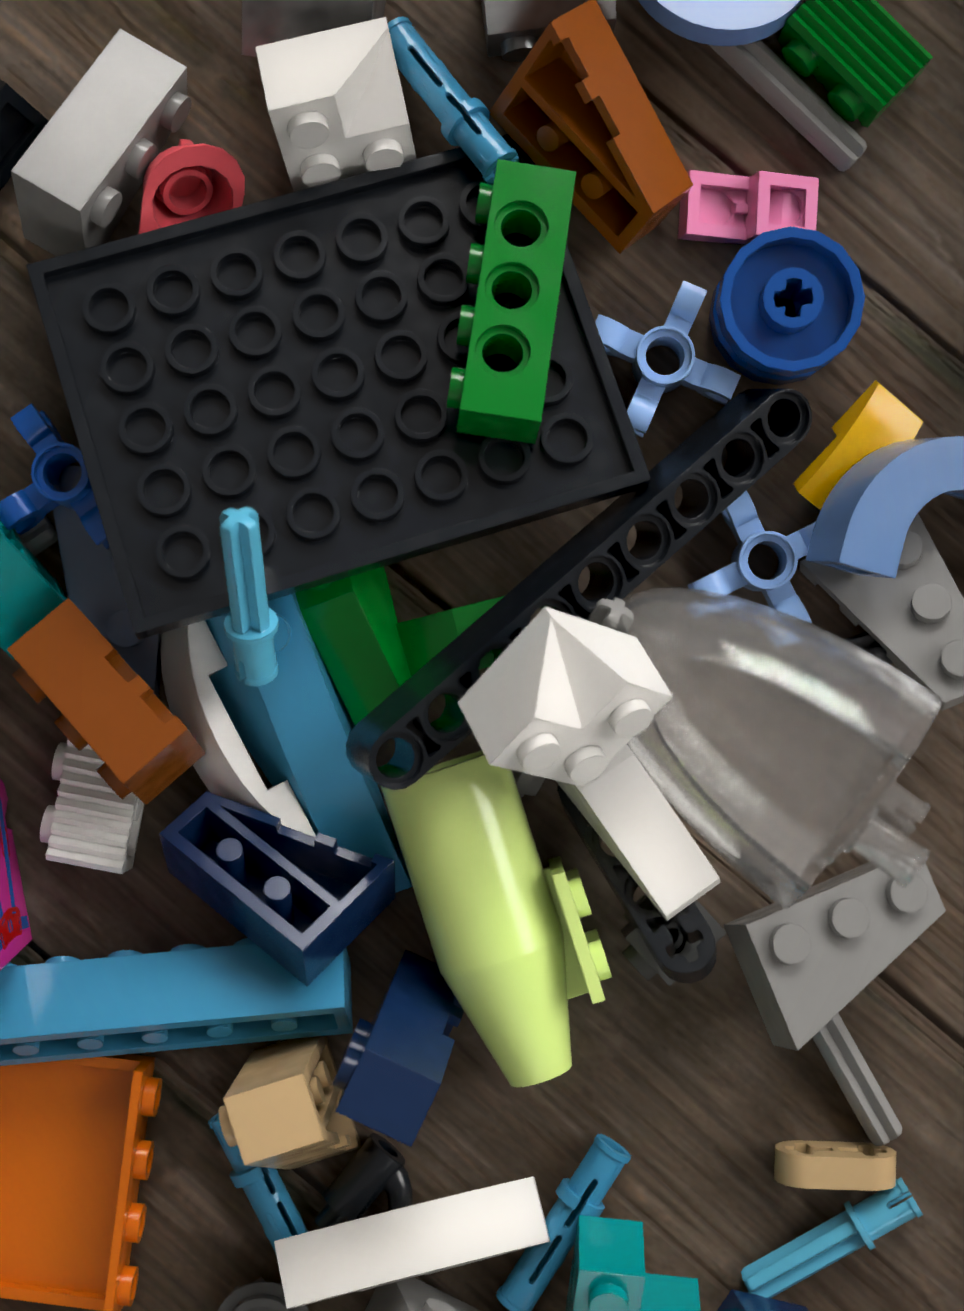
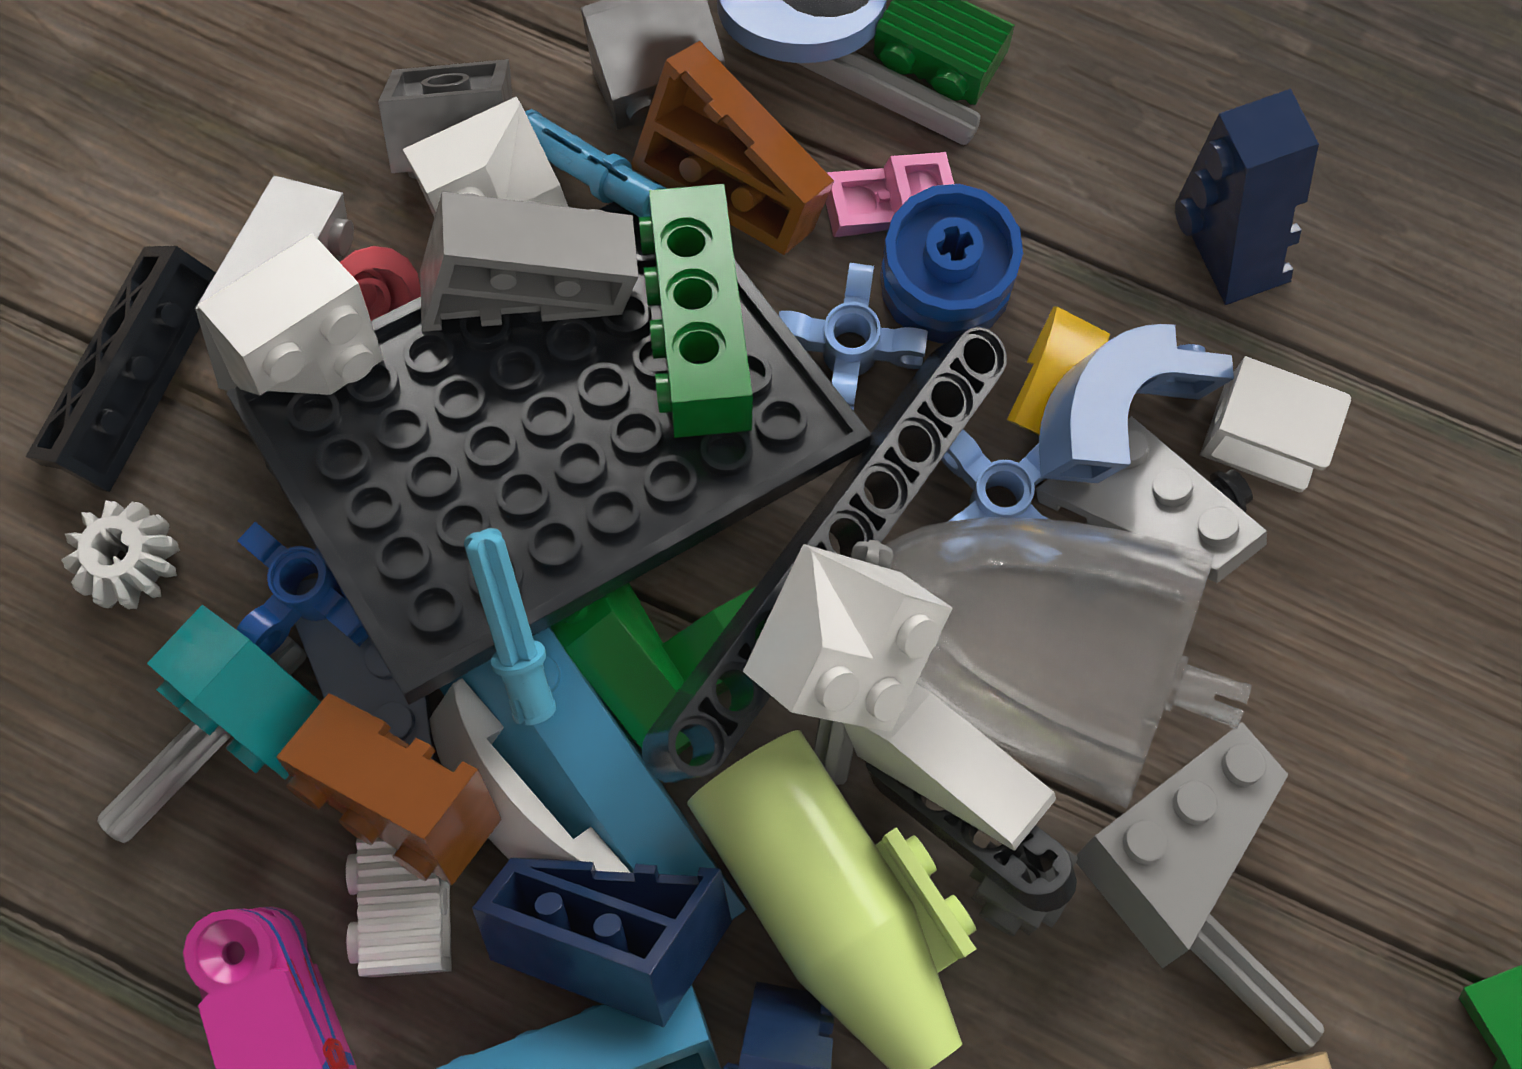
camera: 15 degrees left, 15 degrees down
(104, 224) = (294, 324): none -> white slope
(354, 202) = (524, 258): none -> light grey wedge

